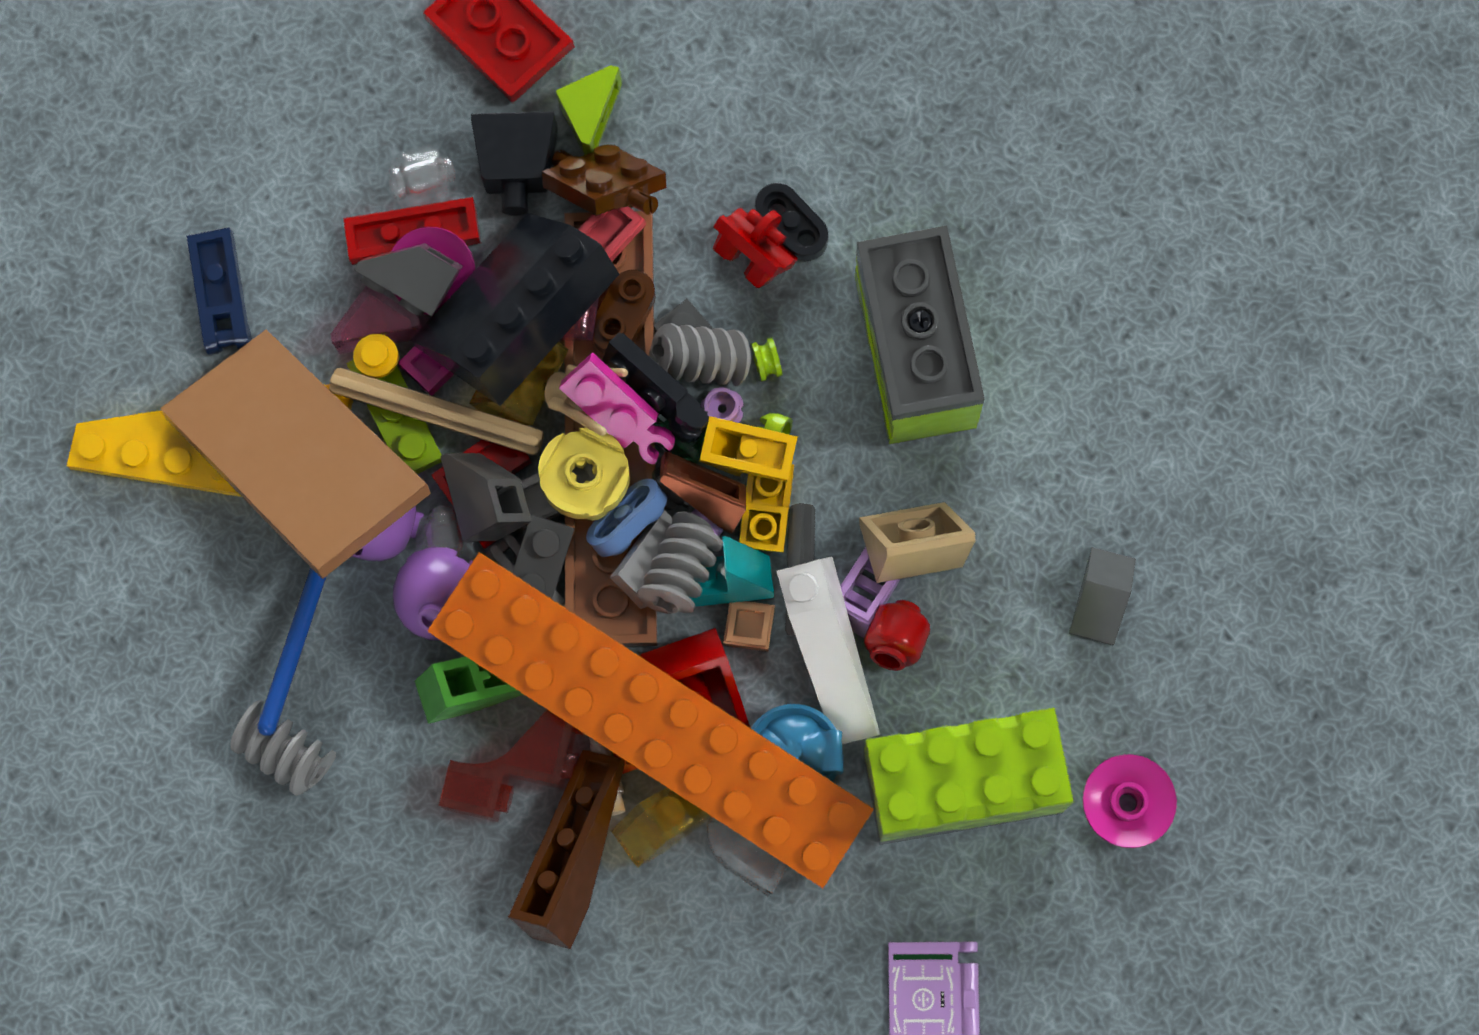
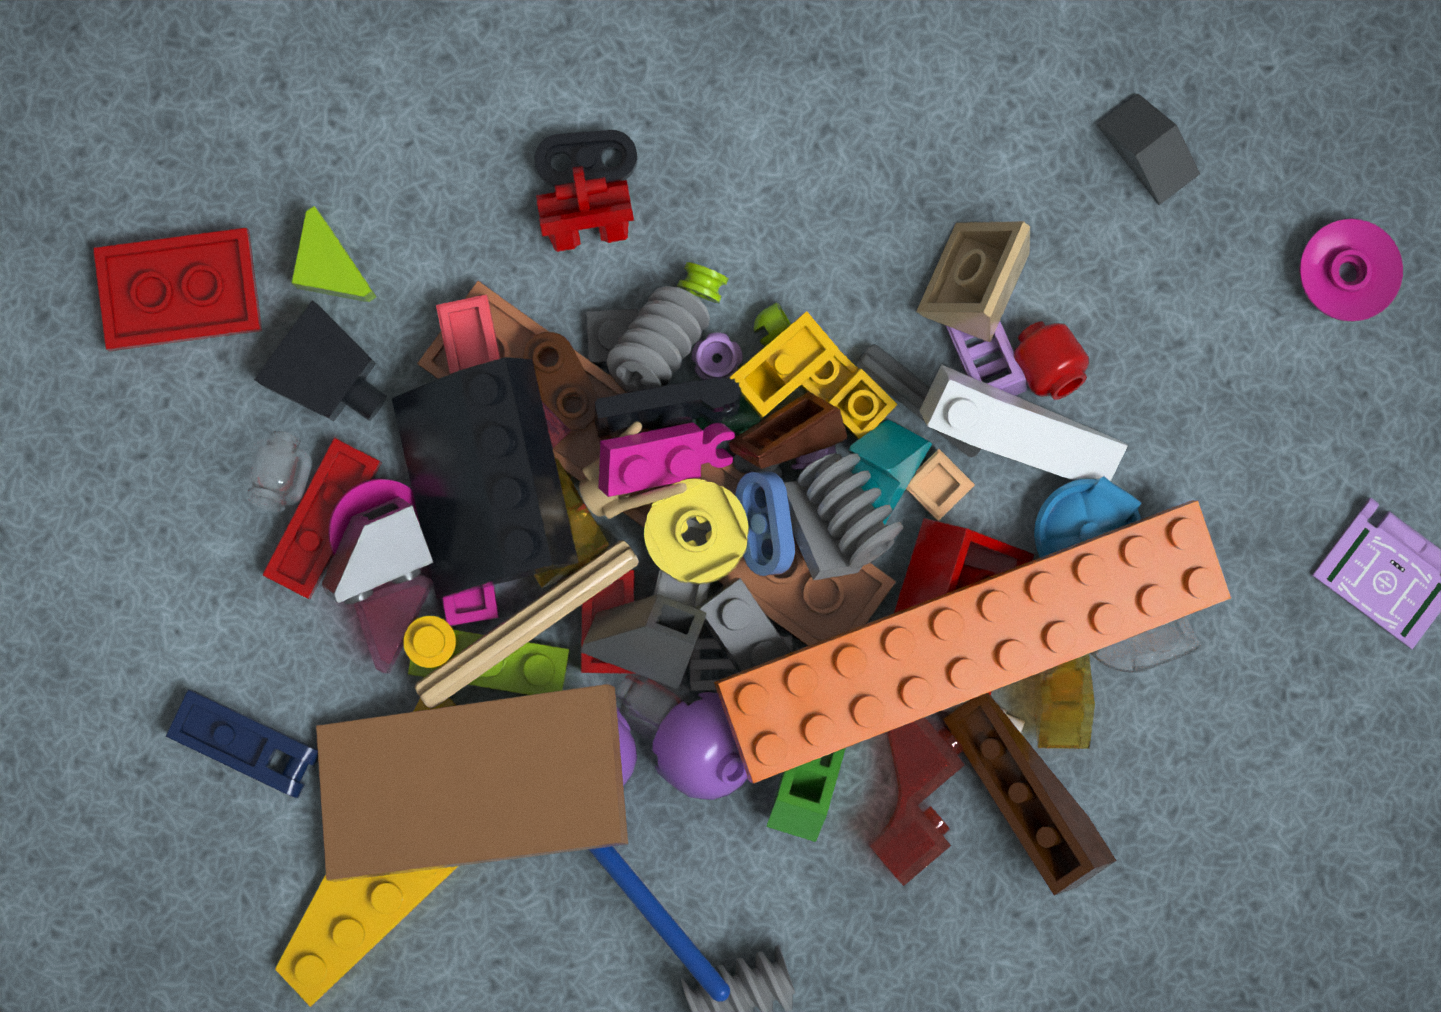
camera: 65 degrees left, 10 degrees up
(605, 180) = (420, 303): reddish brown plate -> none
(918, 334) = (797, 128): dark grey piece -> none
(967, 776) = (1232, 397): lime piece -> none

